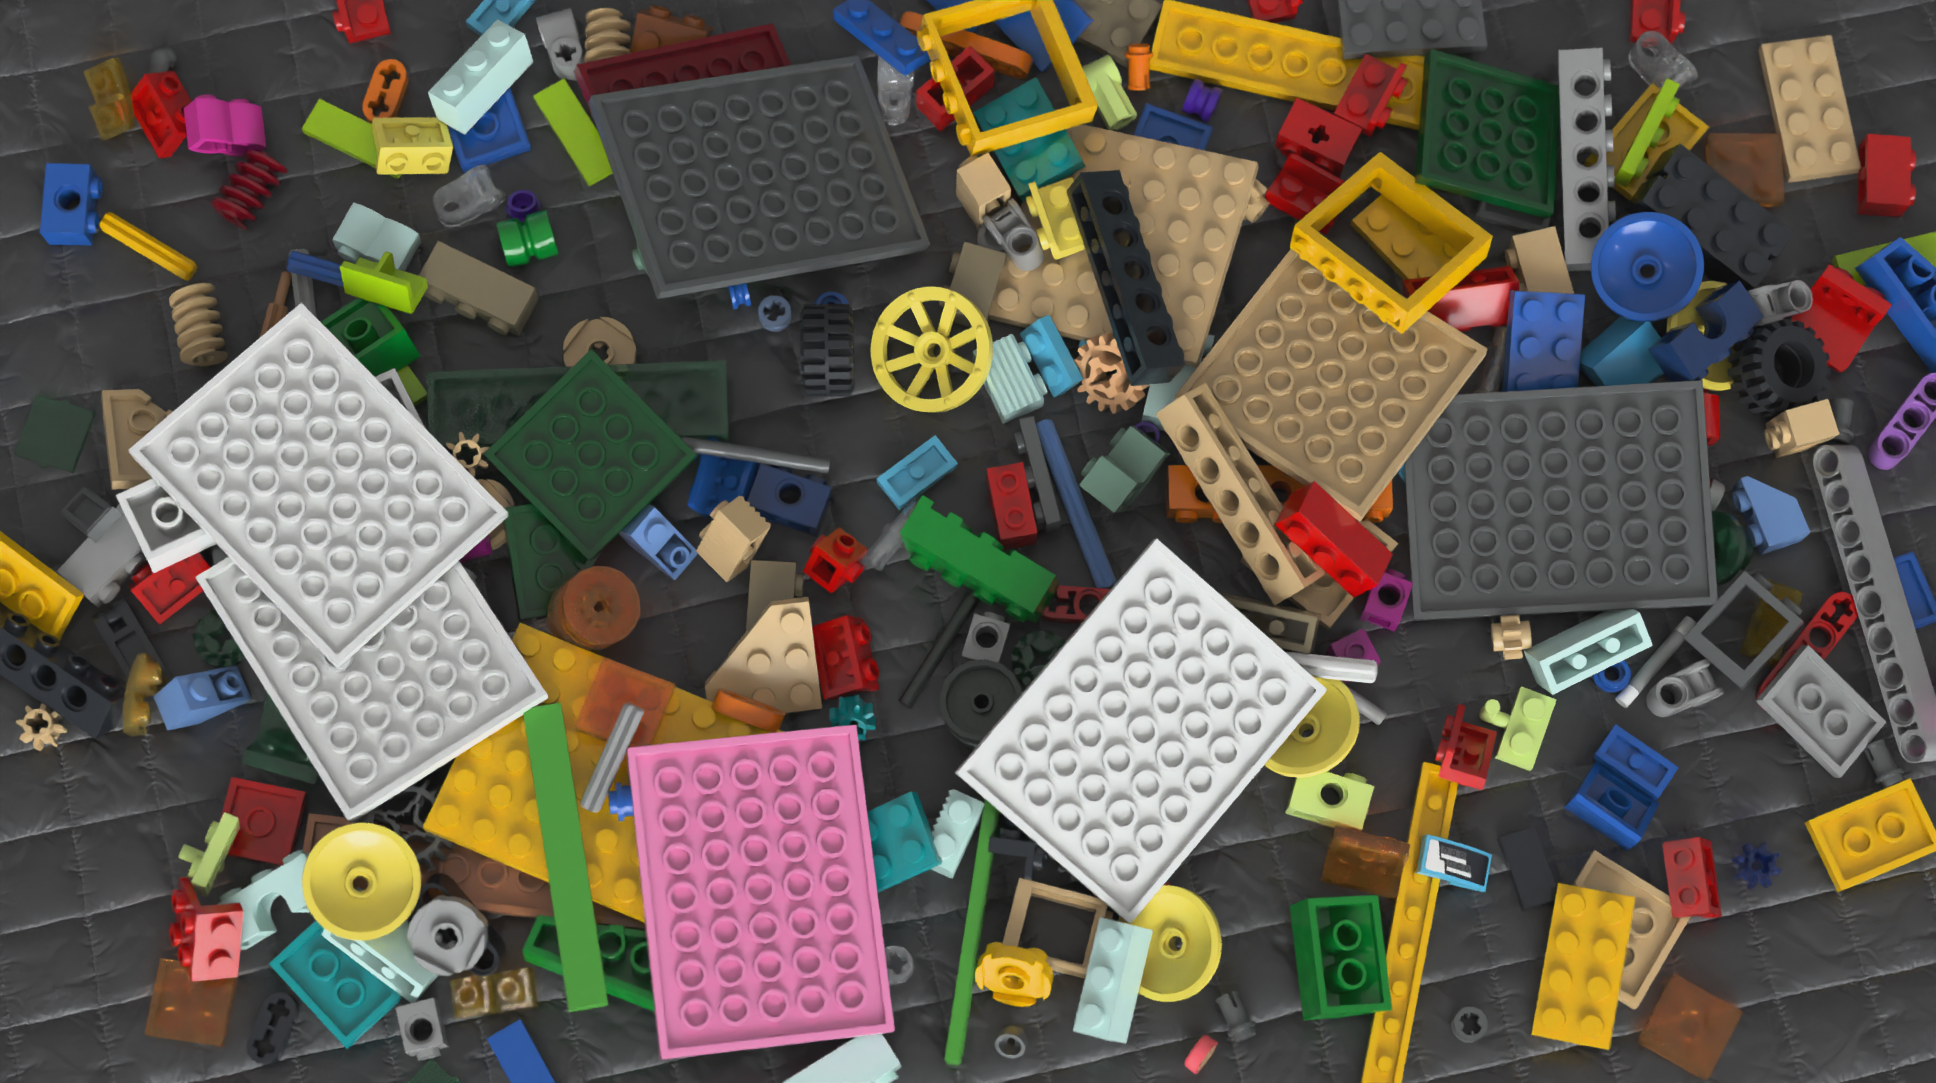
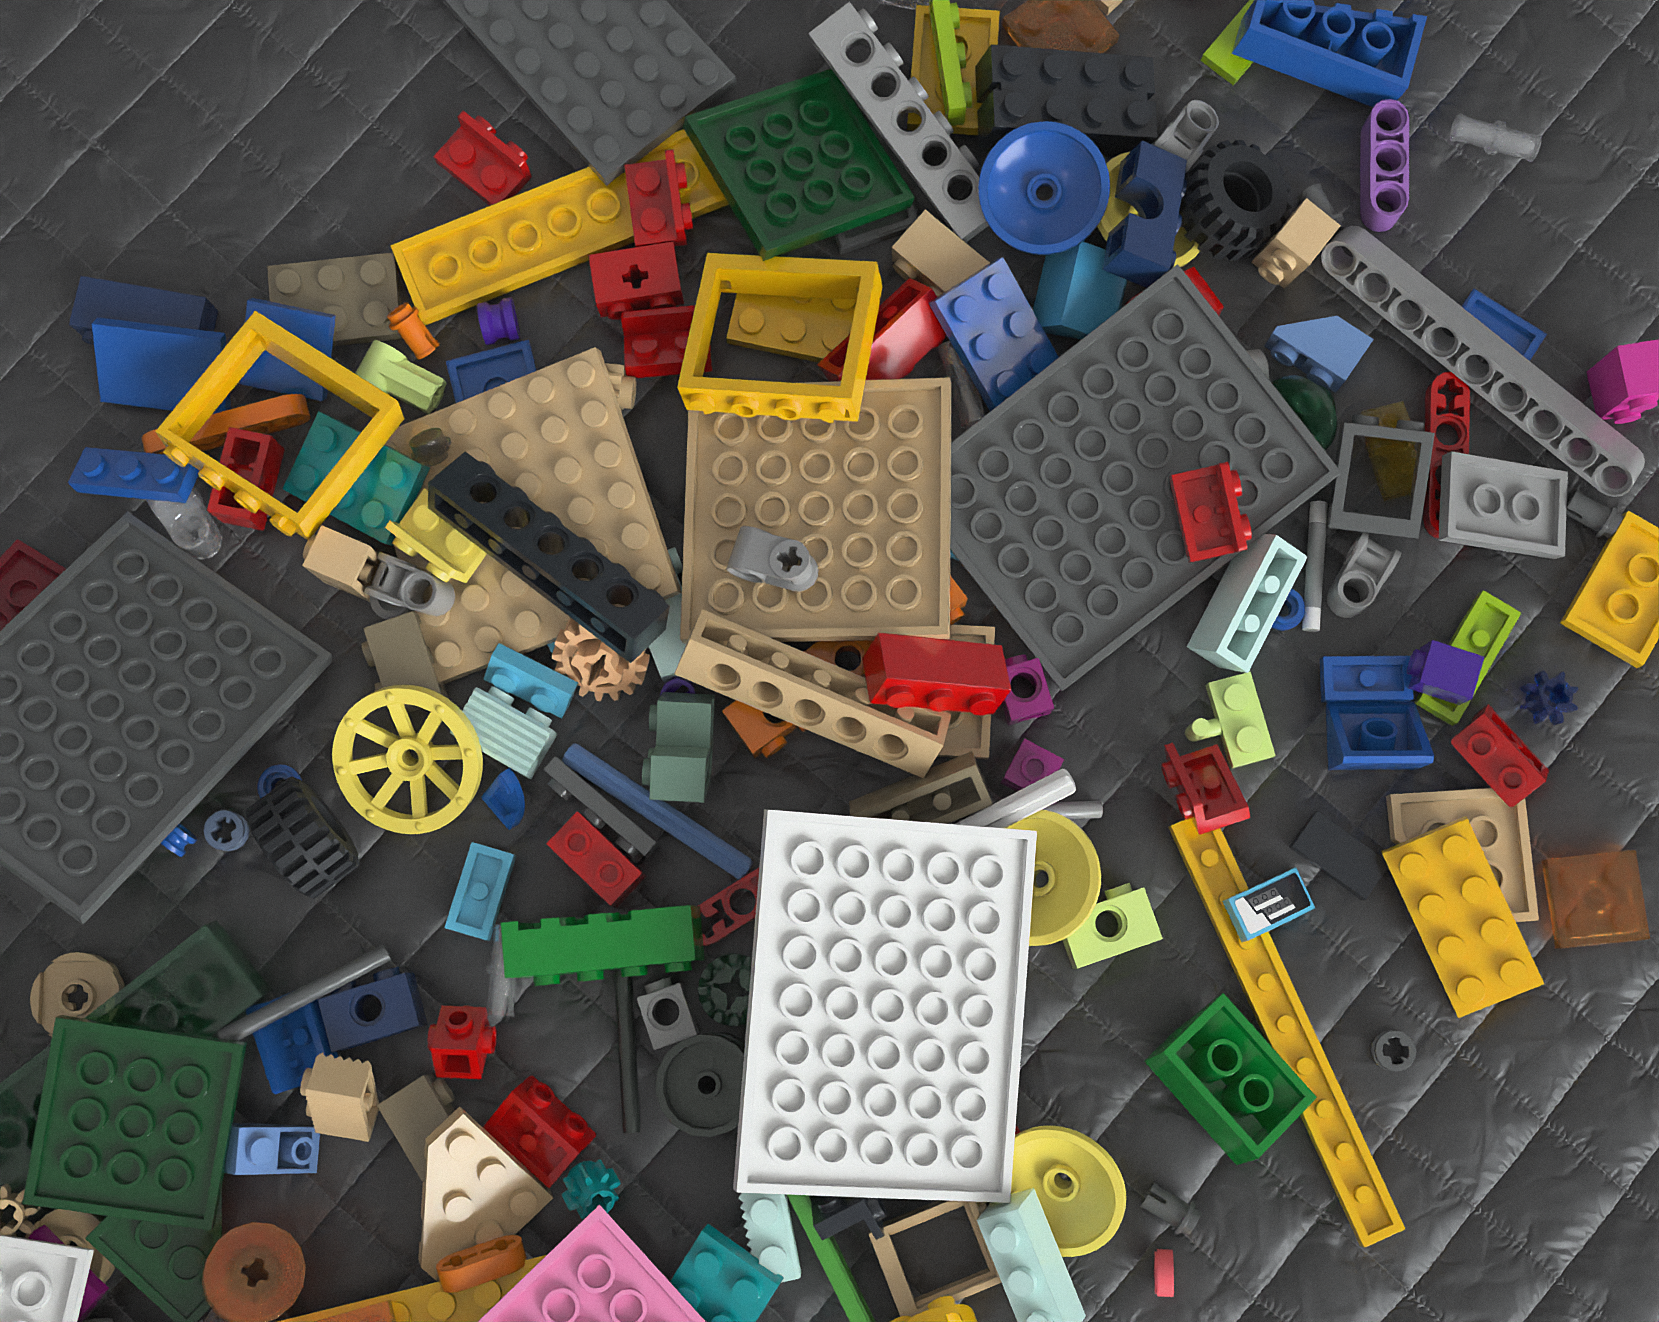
camera: 30 degrees left, 5 degrees up
(978, 423) = (506, 799): none -> blue tile
(1096, 151) = (430, 447): none -> clear smoke plate
(1276, 385) = (765, 559): none -> light grey piece
(1365, 861) = (1186, 967): clear orange bracket -> none
(1511, 636) = (1166, 642): tan gear -> none
(1602, 564) = (1210, 511): none -> red bracket
(1692, 790) = (1444, 672): none -> dark purple brick
(1719, 798) = (1482, 633): none -> lime plate
(1842, 315) = (1251, 105): red bracket -> none

